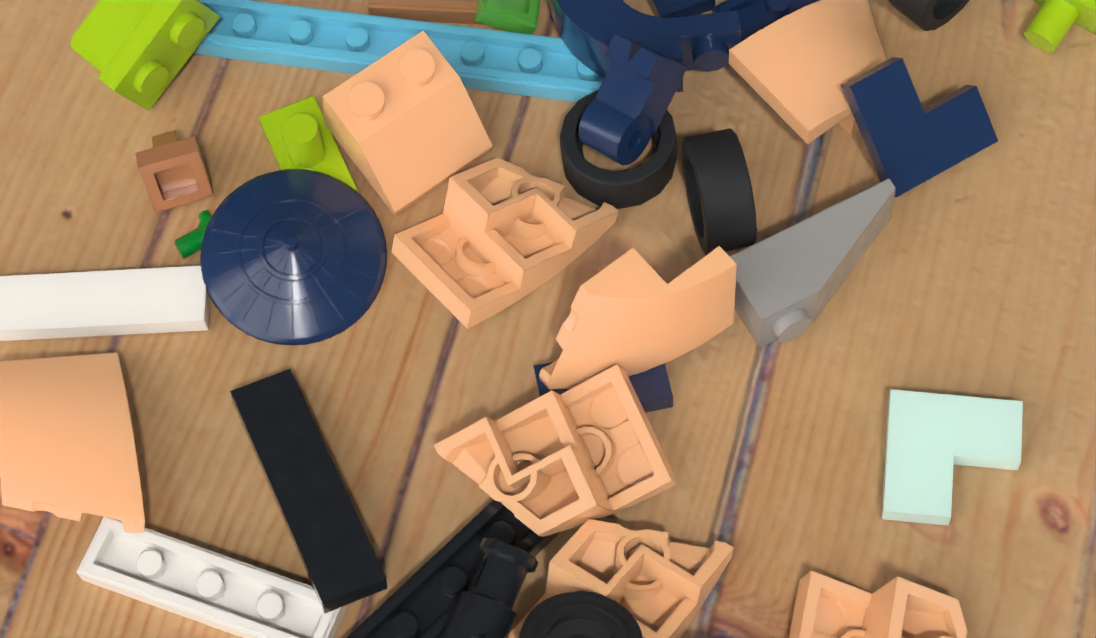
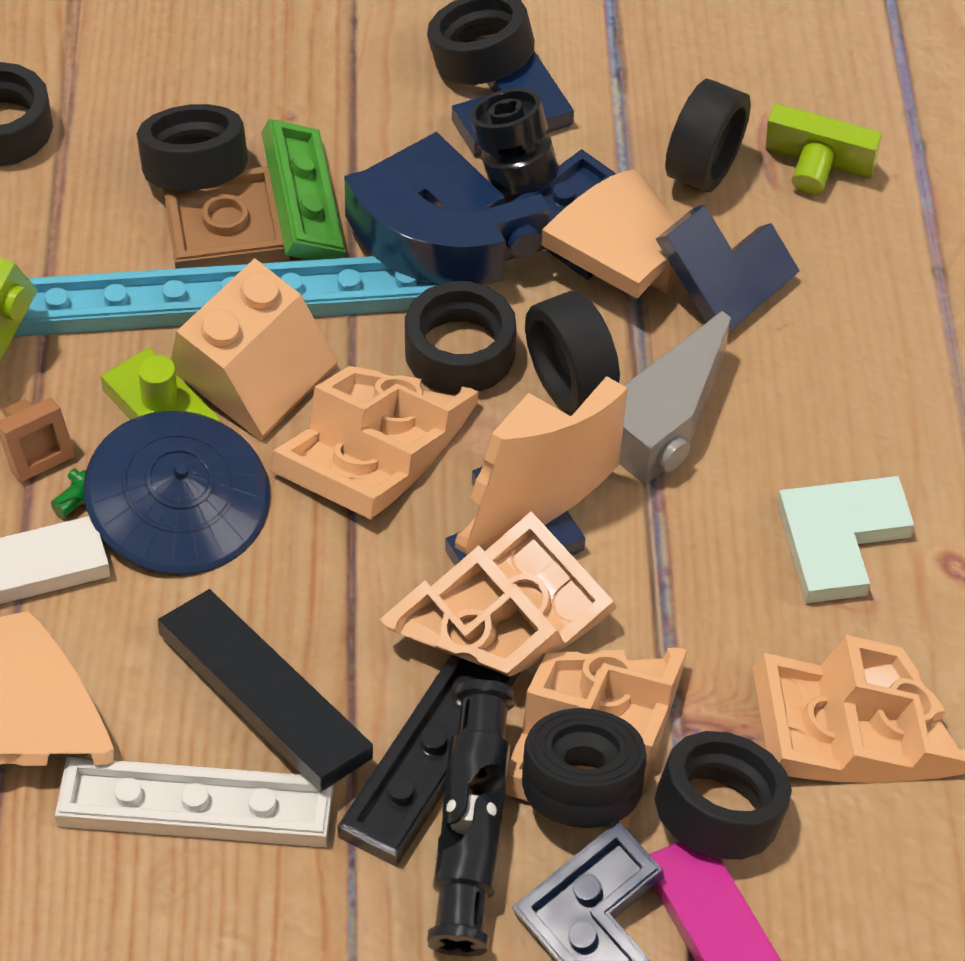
camera: 25 degrees left, 10 degrees down
(630, 100) = (469, 282): dark blue leg -> none

